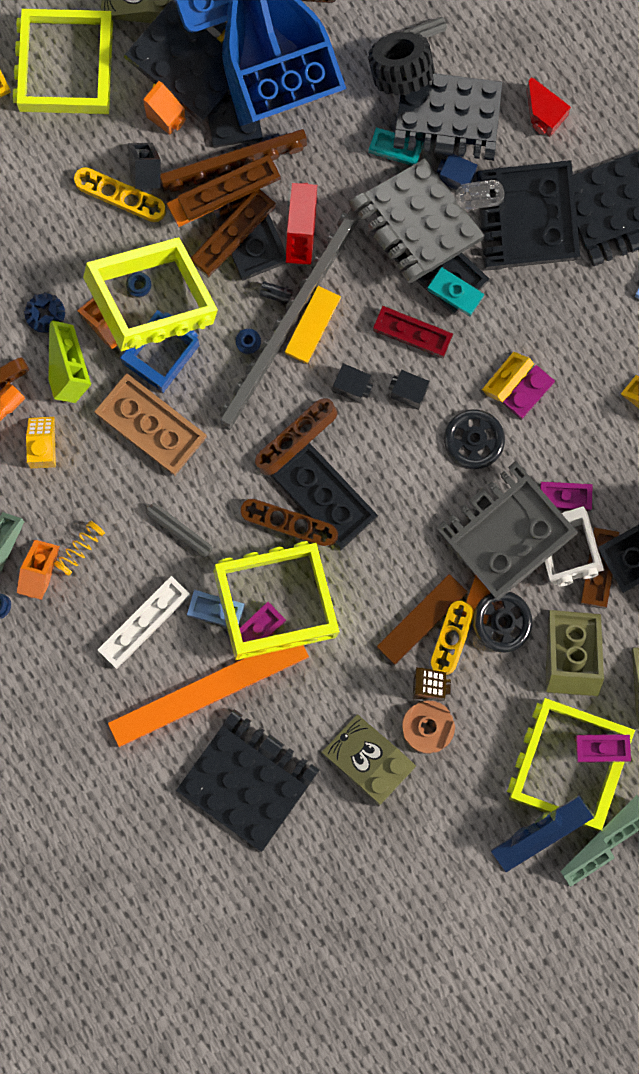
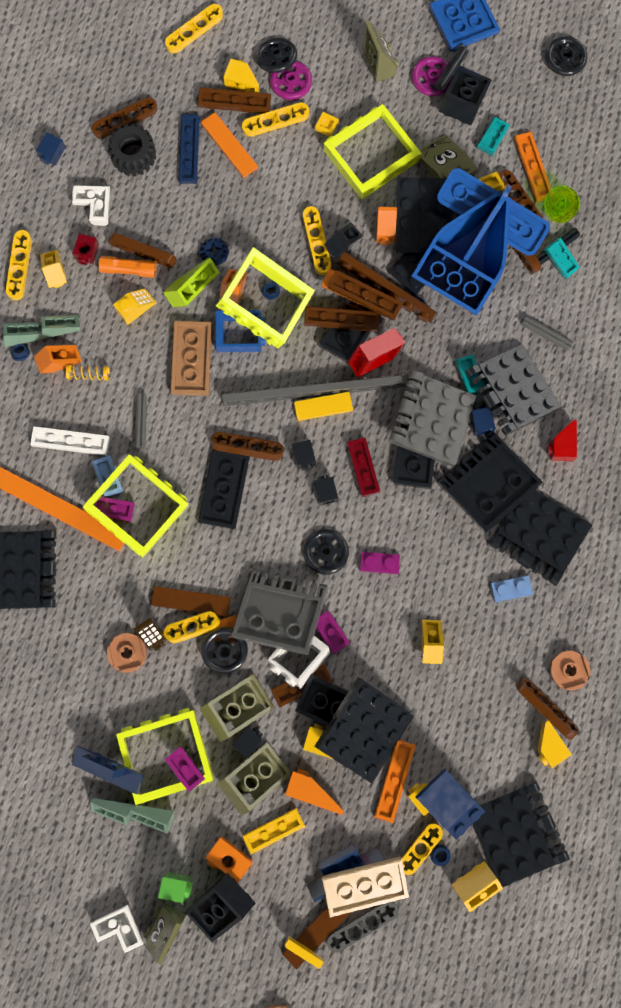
camera: 55 degrees right, 0 degrees up
(248, 348) = (287, 381): dark blue plate -> none
(277, 293) = (326, 370): black pin -> none
(289, 522) = (188, 481): reddish brown beam -> none
(369, 759) = (80, 632): olive slope -> none
(401, 63) = (522, 338): black tyre -> none
(455, 292) = (406, 473): teal plate -> none
(479, 194) = (477, 444): clear beam -> none
(508, 376) = (379, 543): yellow plate -> none
(619, 665) = (248, 741): none -> black brick

